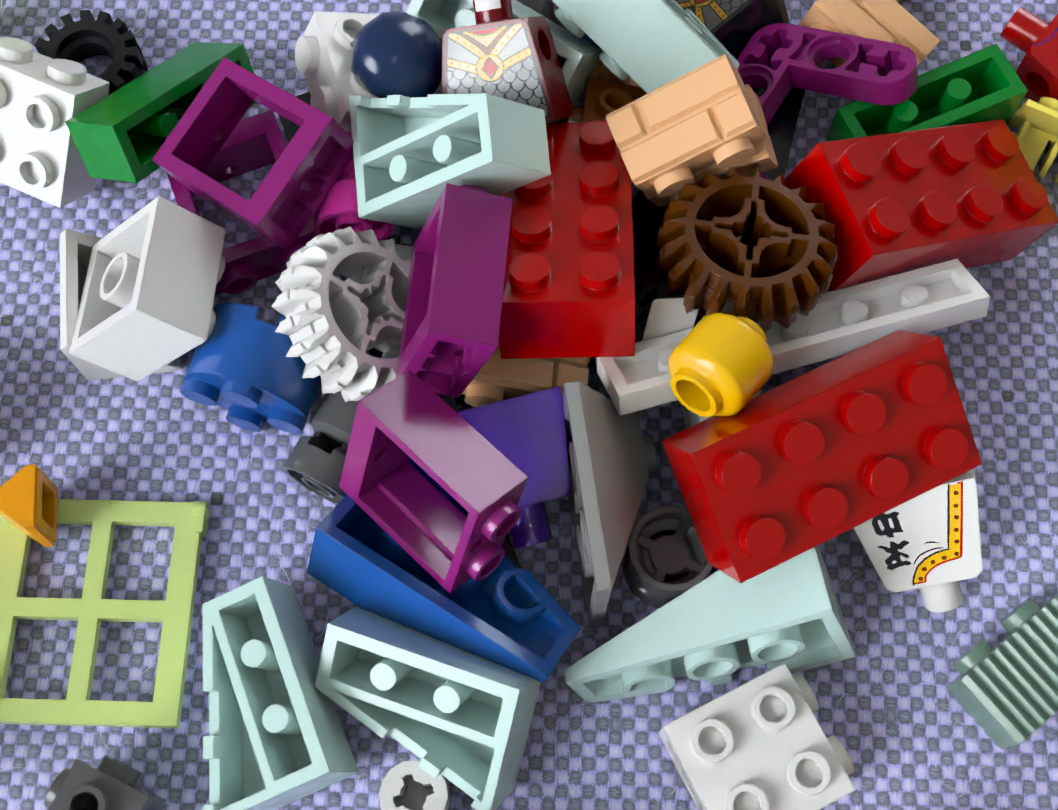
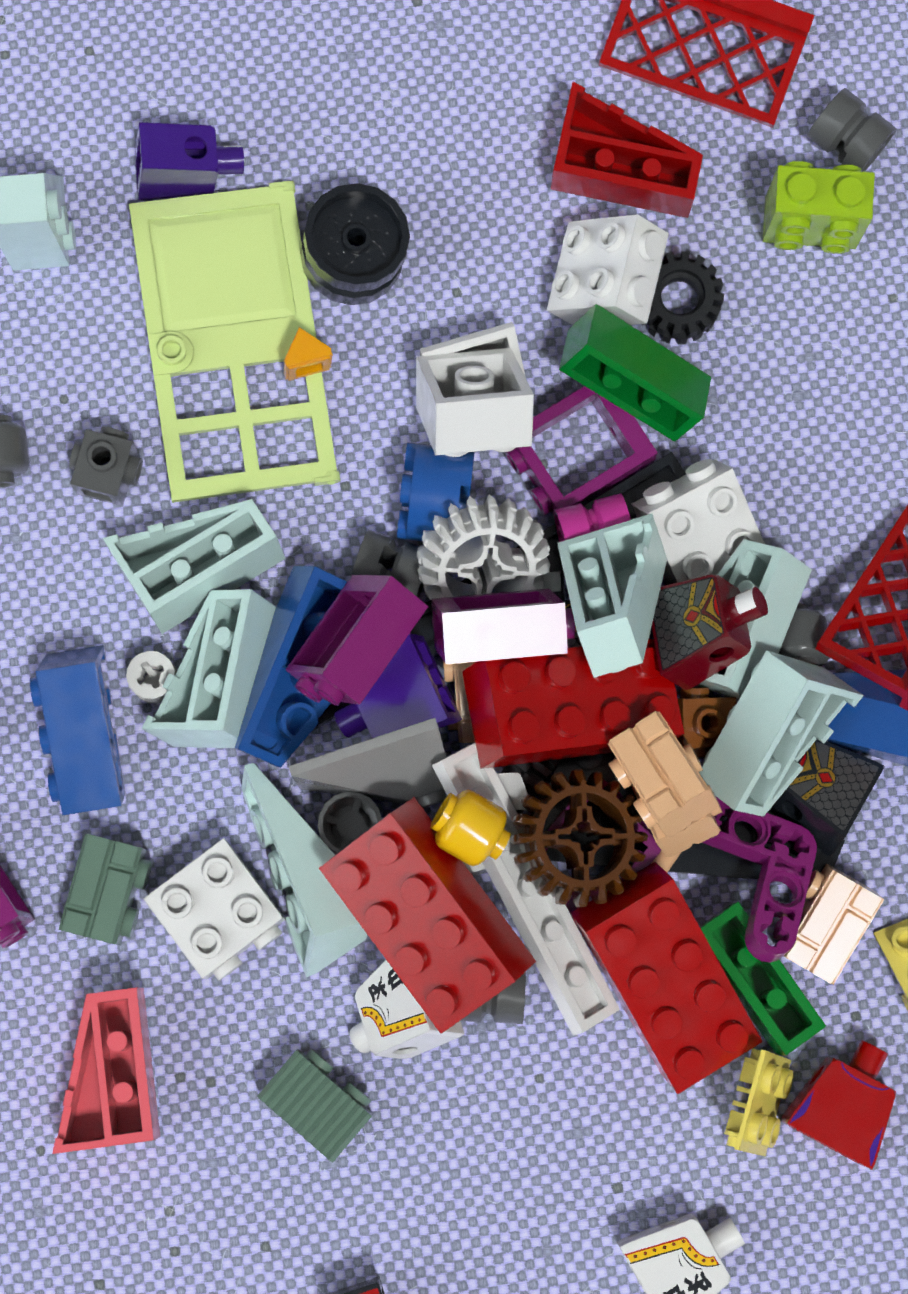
camera: 75 degrees right, 10 degrees up
(279, 204) = (578, 492): magenta window -> none
(397, 56) = (699, 542): dark blue hair -> none

